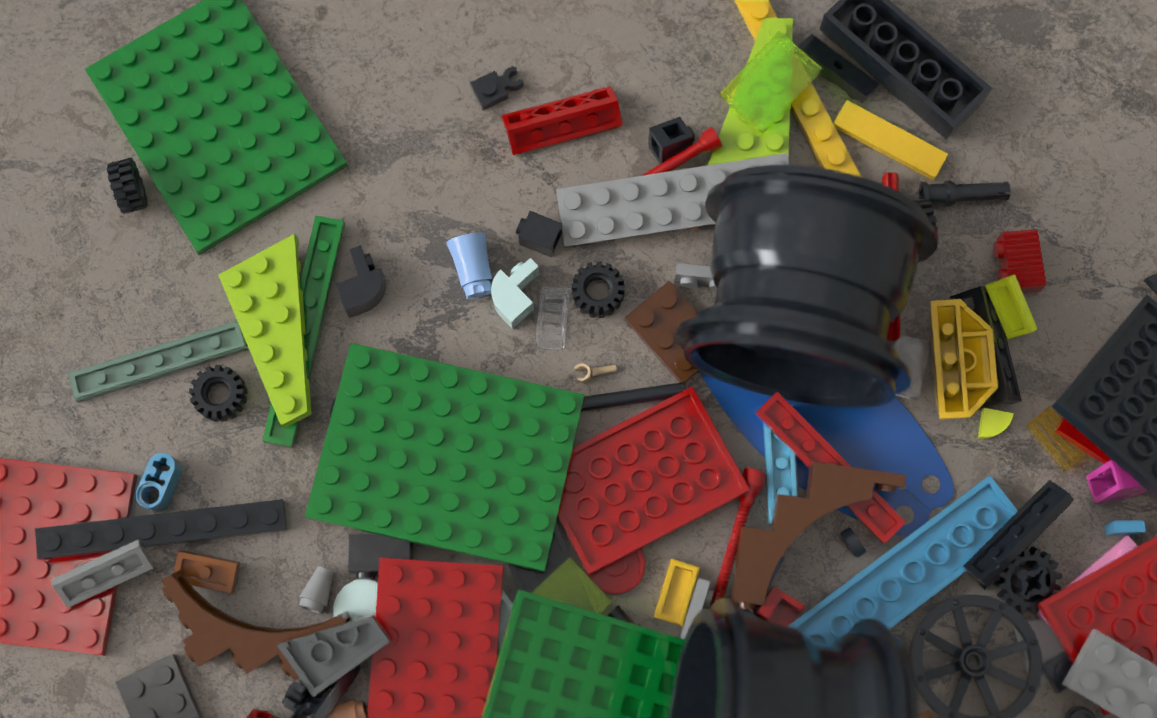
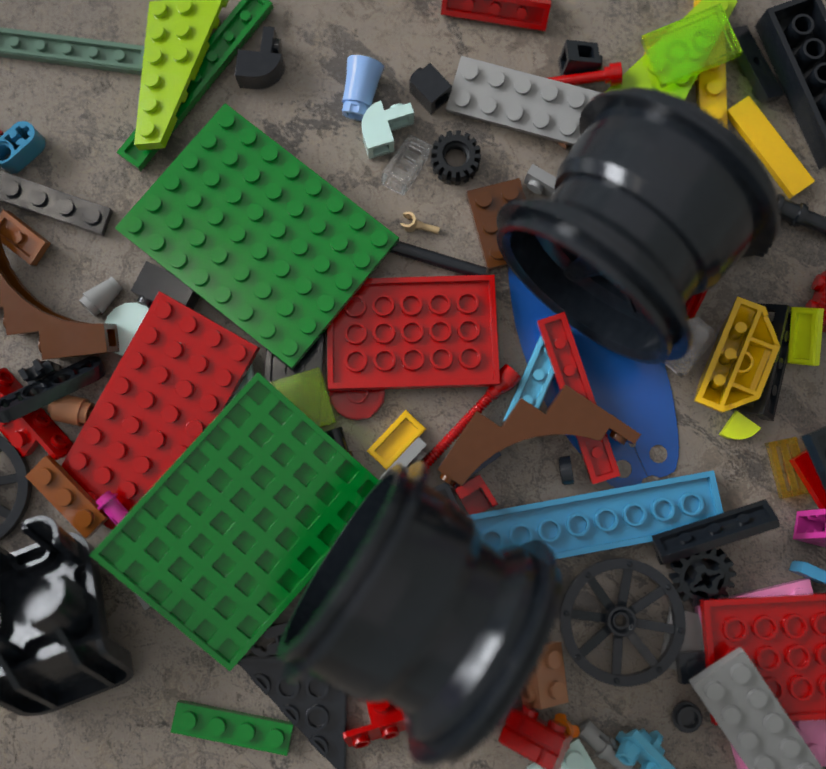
camera: 25 degrees right, 5 degrees up
(209, 378) = (94, 85): black tyre -> none
(333, 652) = (81, 350): dark grey wing -> none

